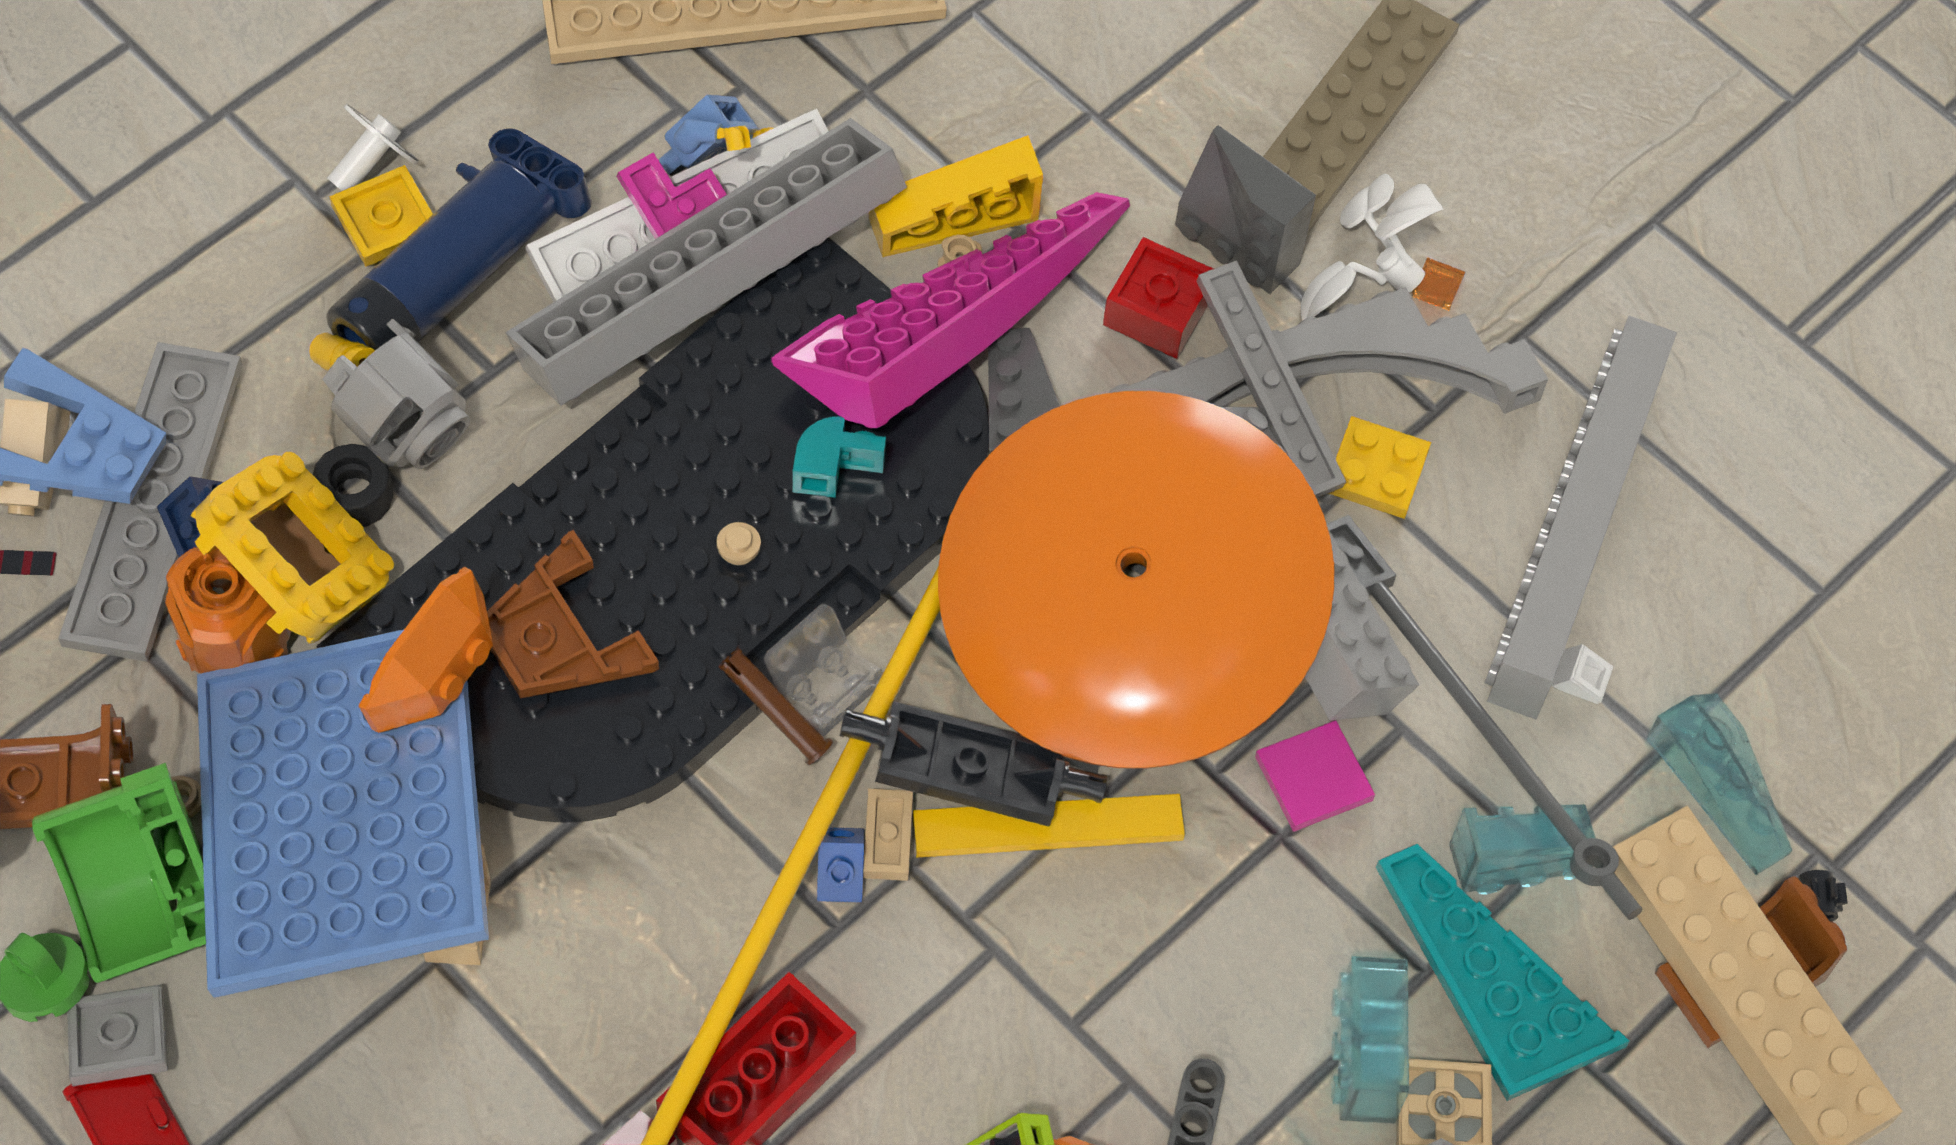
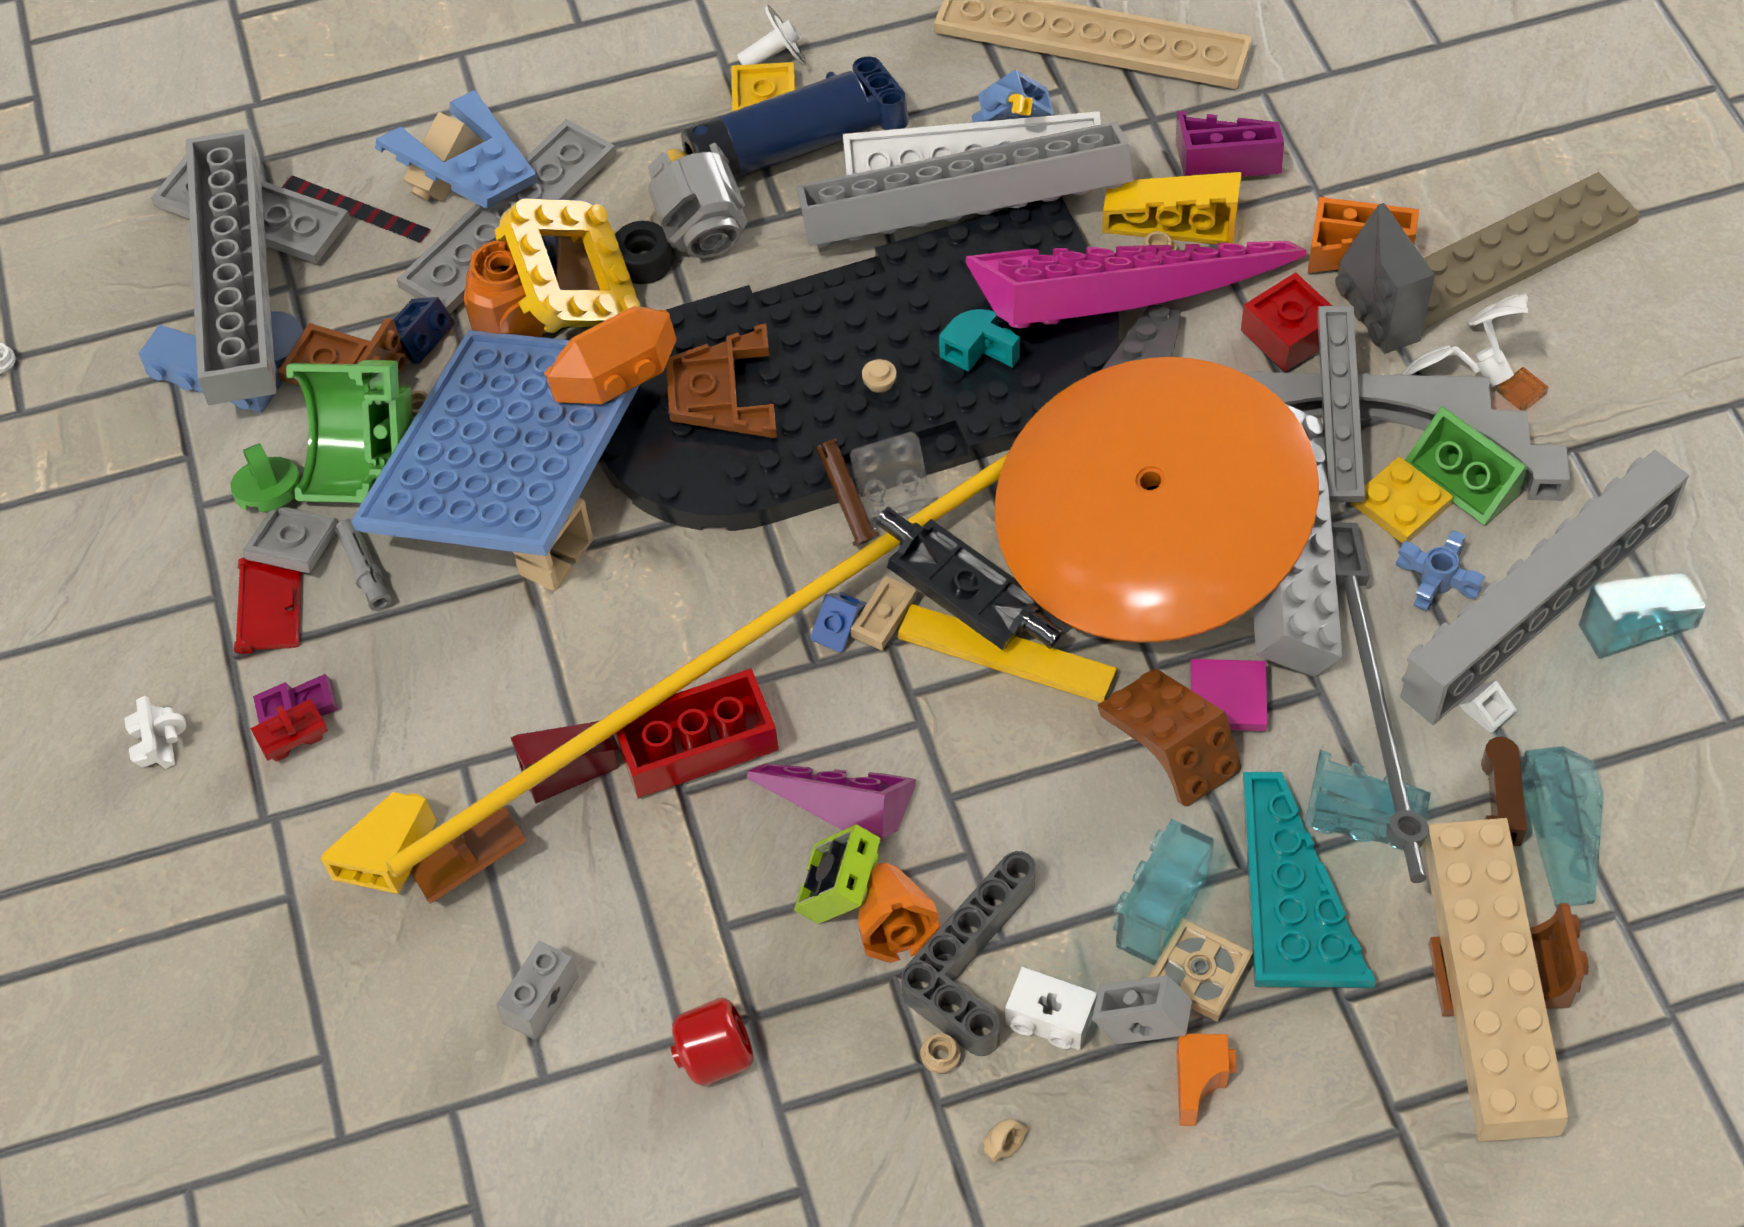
camera: 35 degrees right, 5 degrees down
(128, 683) = (422, 326): none -> dark blue bracket
(242, 1042) = (367, 574): none -> light grey pin
(658, 199) = (949, 130): dark pink plate -> none
(978, 1080) = (870, 801): none -> magenta wedge
(979, 102) = (1228, 147): none -> magenta wedge
(1163, 157) = (1340, 223): none -> orange wedge
(1282, 838) = (1179, 729): none -> dark orange bracket
(1430, 401) = (1468, 466): none -> bright green slope
(1462, 521) = (1437, 581): none -> medium blue pin
(1648, 764) = (1503, 769): none -> reddish brown leg
(1686, 506) = (1639, 612): none -> clear light blue wedge
(1828, 892) = (1598, 939): black gear -> none

